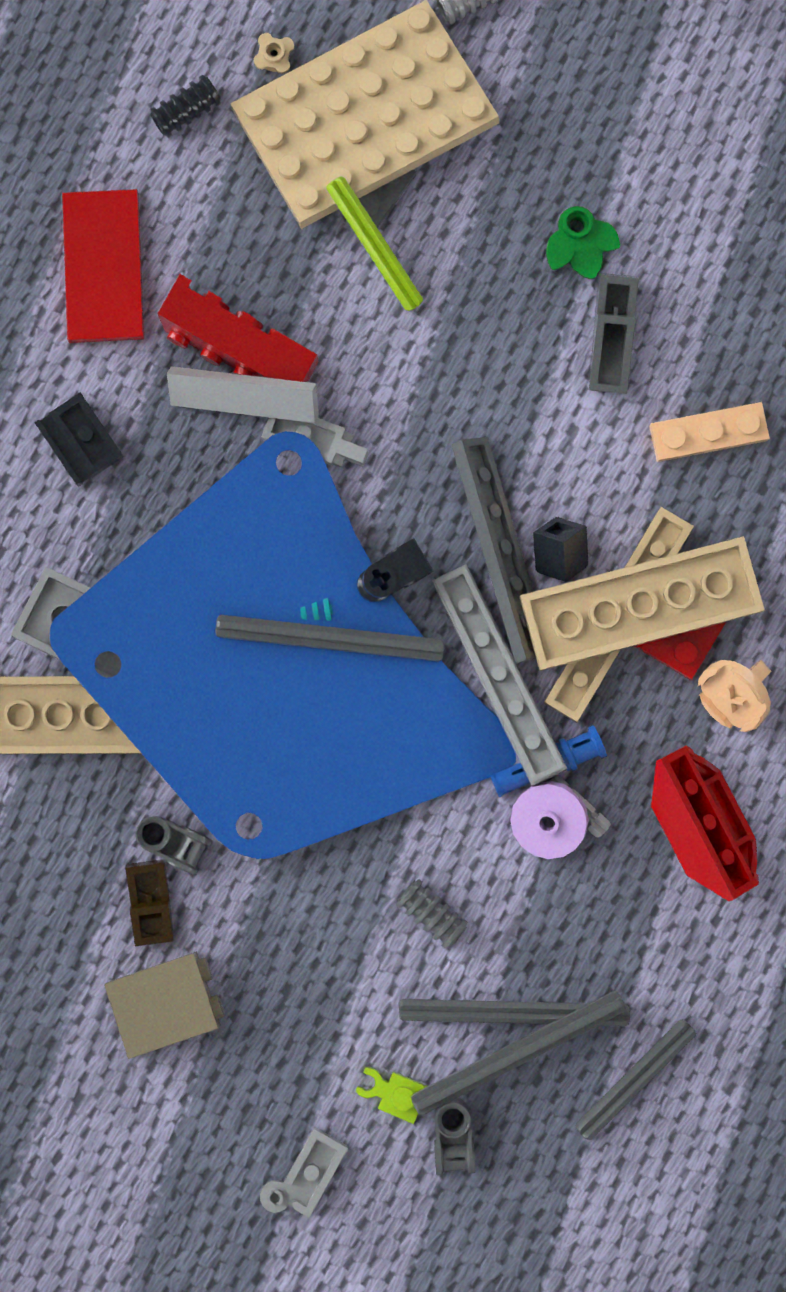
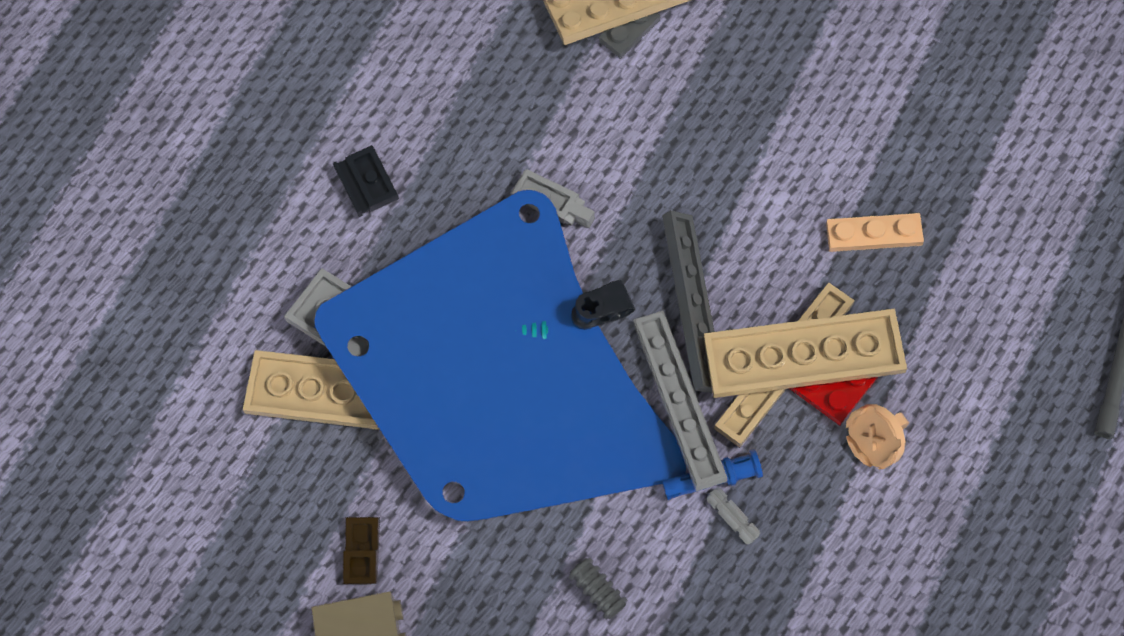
camera: 15 degrees right, 15 degrees down
(103, 266) = (406, 59): red tile -> none
(175, 844) = (392, 505): dark grey piece -> none
(231, 338) = (500, 119): red wedge -> none
(243, 394) = (500, 158): light grey tile -> none
(329, 638) = (543, 351): dark grey axle -> none
(374, 243) = (620, 60): lime axle -> none
(560, 549) = (742, 306): black panel -> none
(562, 806) = (724, 518): lavender plate -> none
(581, 248) = (787, 84): green plate -> none
(613, 332) = (803, 147): dark grey slope -> none
(704, 824) = (839, 538): red wedge -> none

